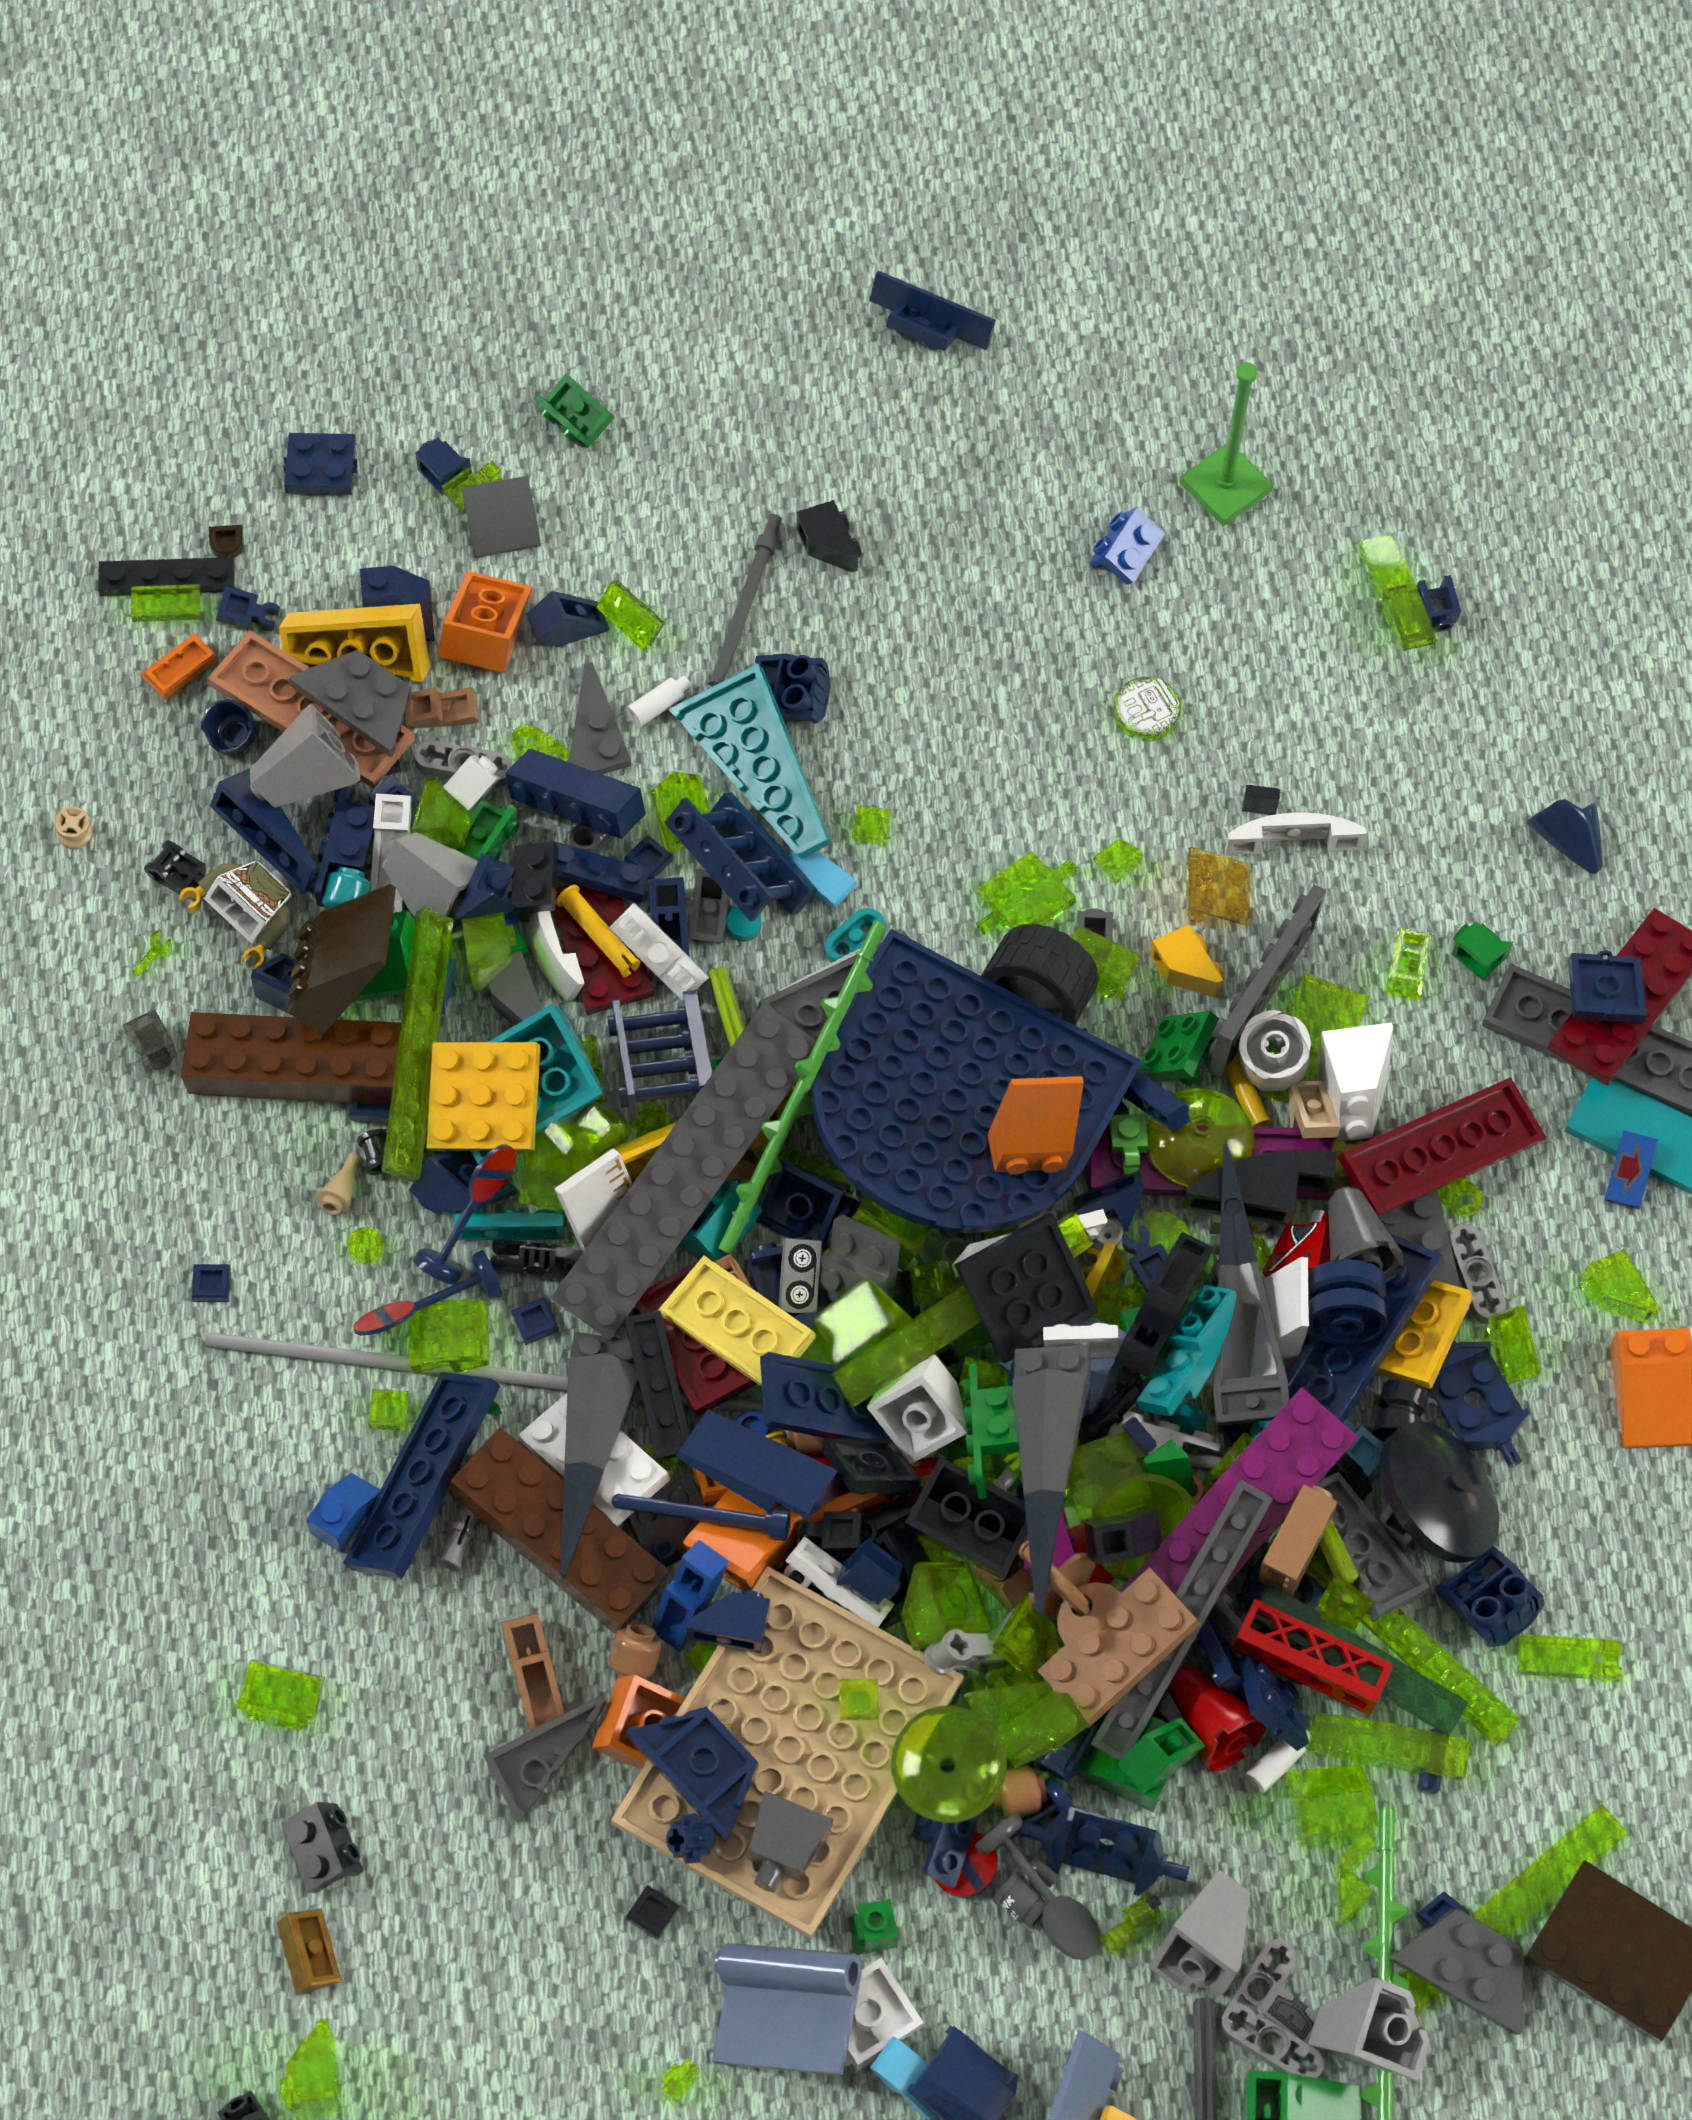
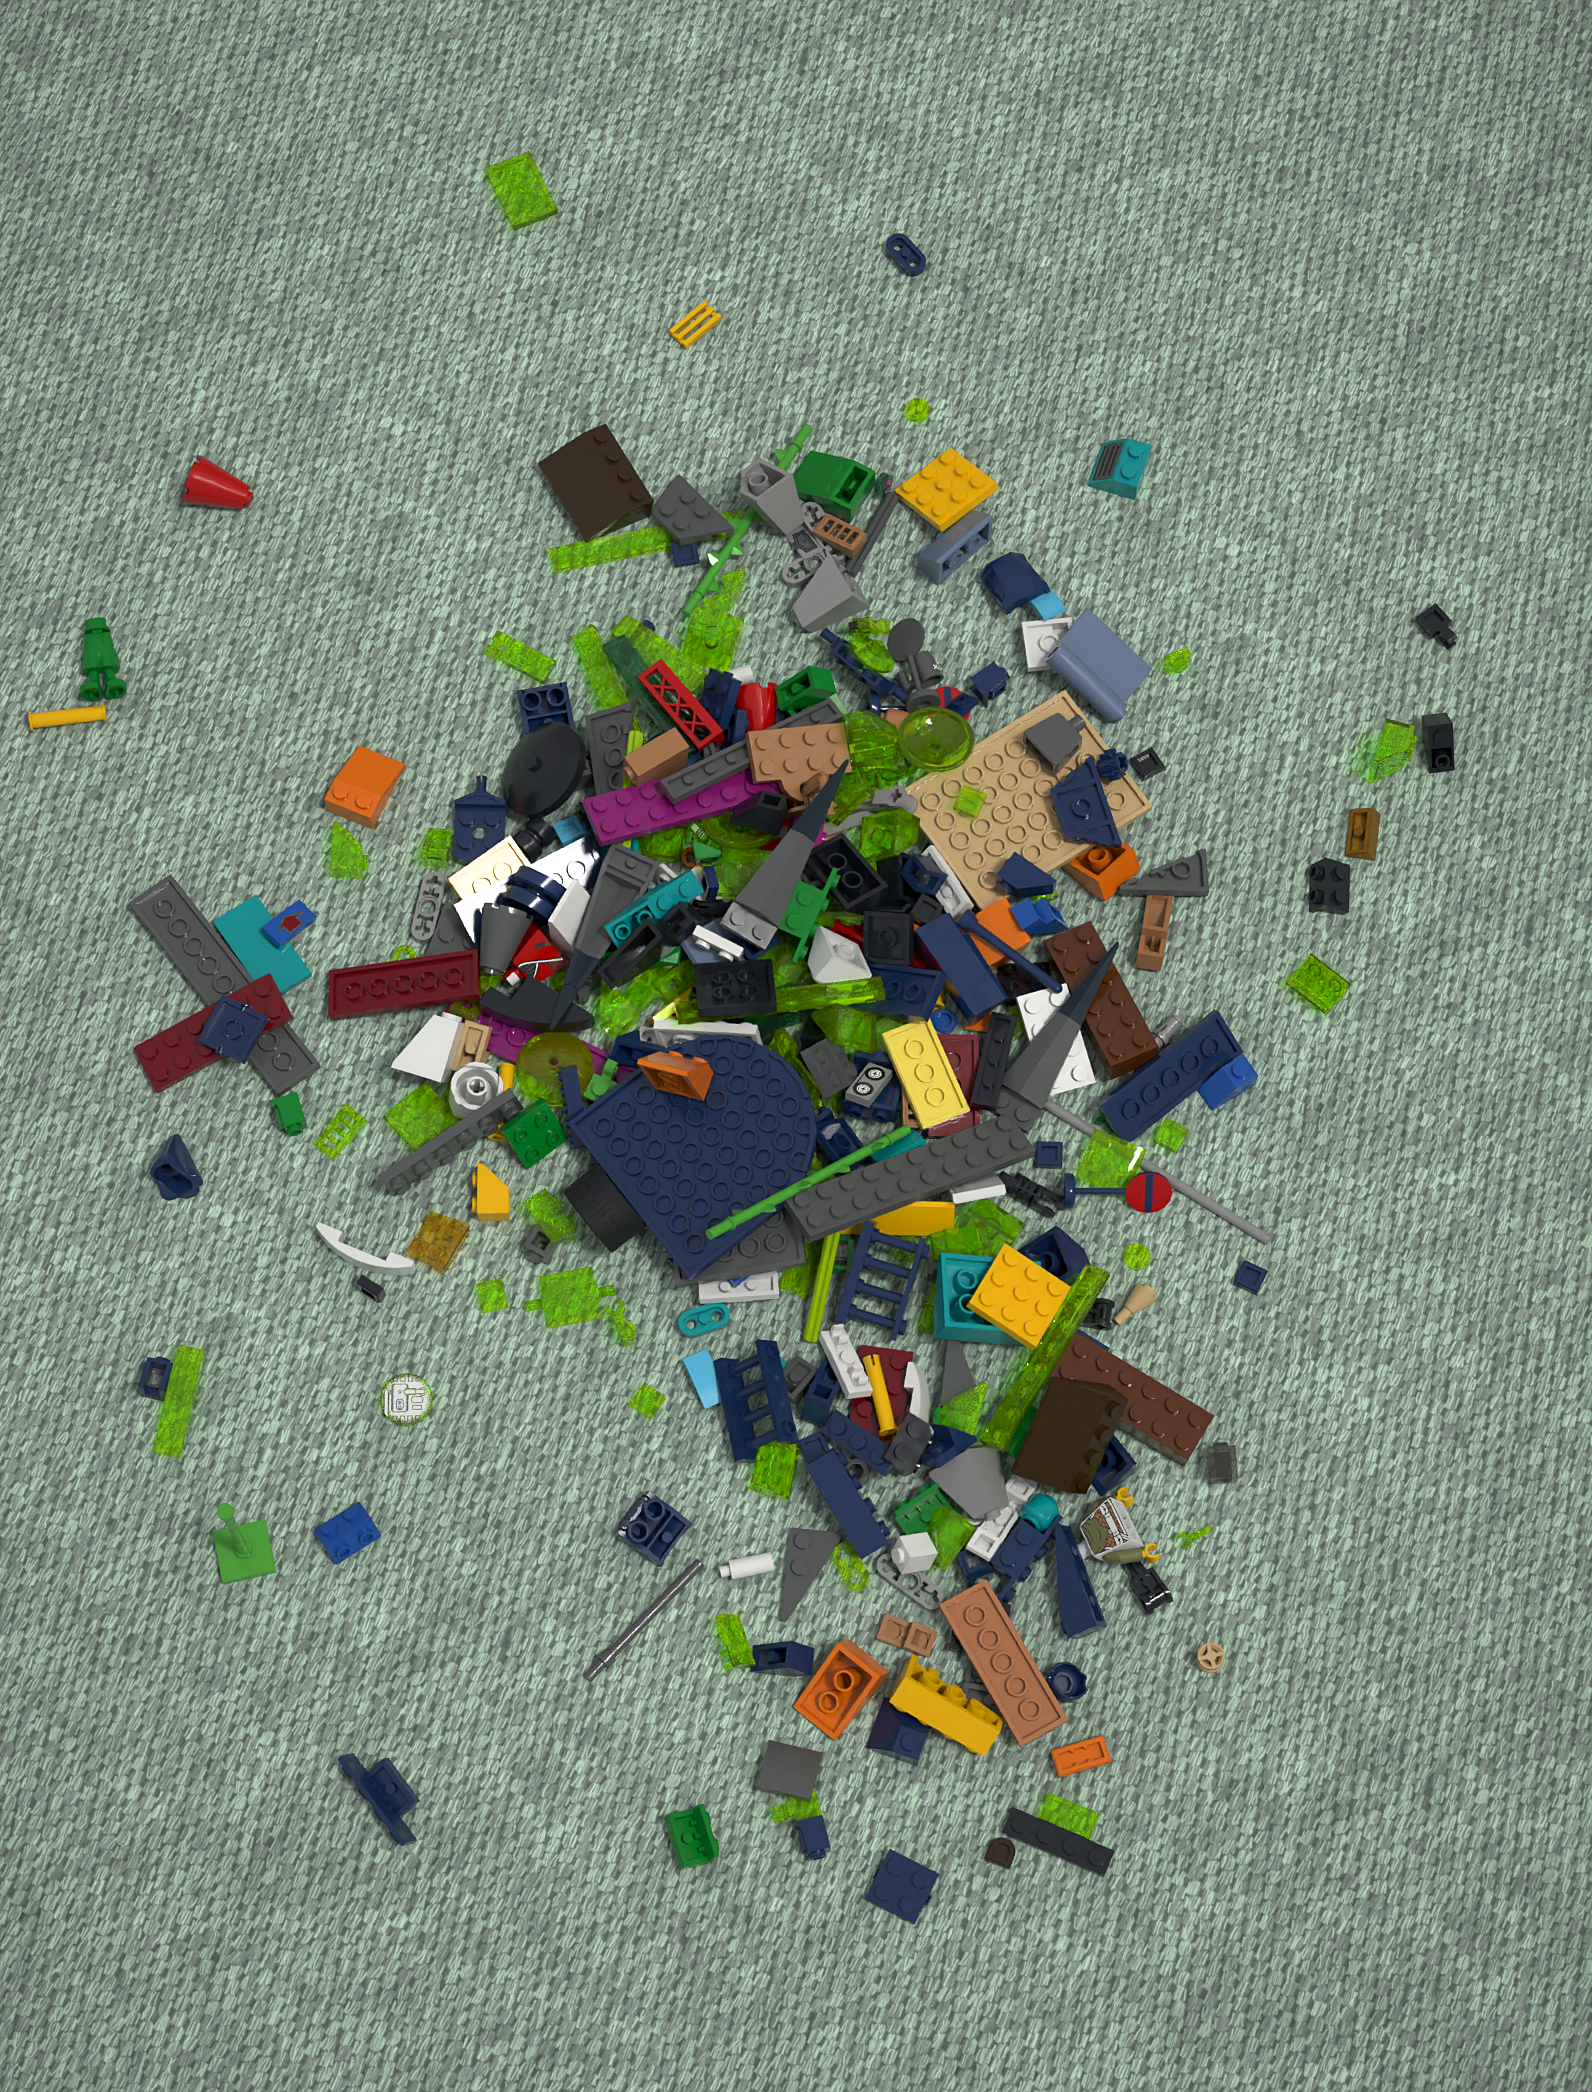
camera: 150 degrees left, 5 degrees up
(241, 608) = (1014, 1784): dark blue plate -> none
(303, 762) = (1029, 1606): light grey slope -> none
(358, 696) = (966, 1648): dark grey wing -> none
(484, 1183) = (1096, 1212): dark blue piece -> none
(513, 1225) = (1035, 1220): teal plate -> none
(635, 1651) = (1086, 908): medium nougat head -> none
(750, 743) = (702, 1487): teal wing -> none
(827, 536) = (560, 1640): black slope -> none
(874, 1927) = (1021, 691): green window -> none
(924, 1920) = (989, 683): none -> dark blue window
(946, 885) = (624, 1328): none -> clear neon green plate
(1106, 1865) = (872, 654): none -> clear neon green dish
(1147, 1258) = (638, 992): dark blue plate -> none
(1229, 2050) = (851, 549): none -> medium nougat slope
(1343, 1604) = (647, 723): clear neon green slope -> none

